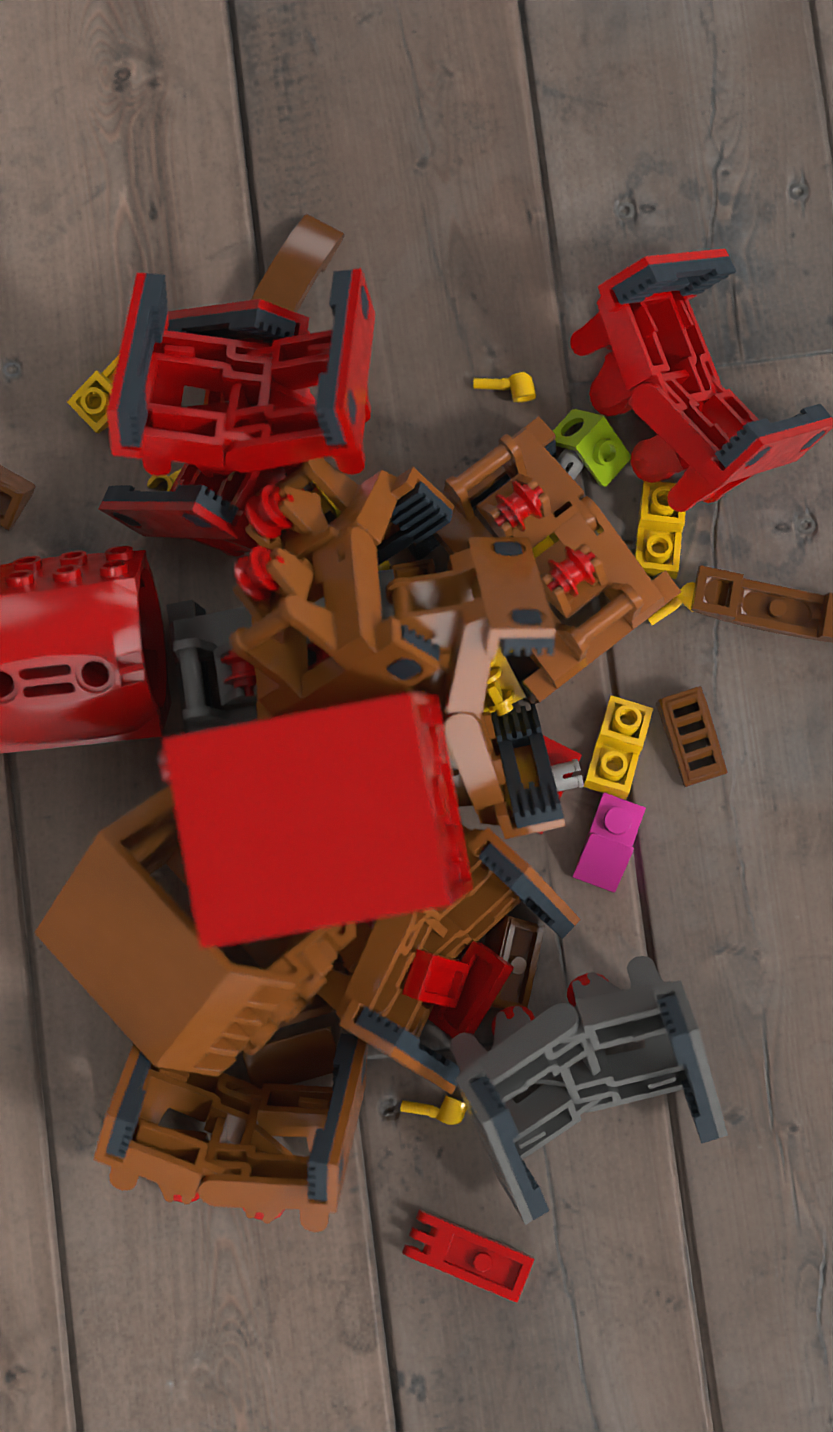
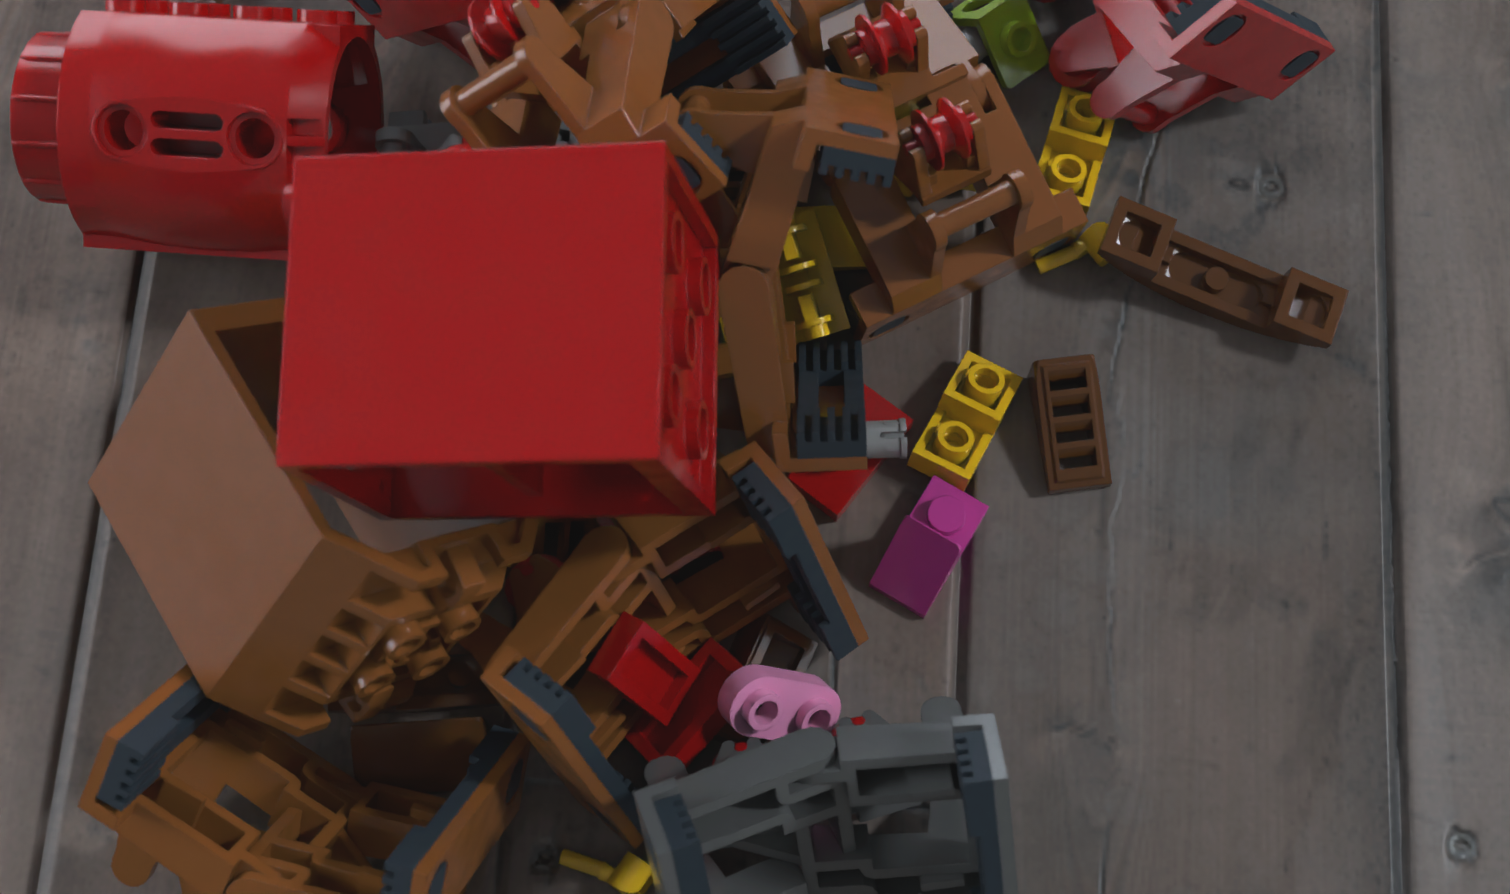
camera: 10 degrees right, 10 degrees down
(529, 979) = (787, 698): none -> bright pink plate

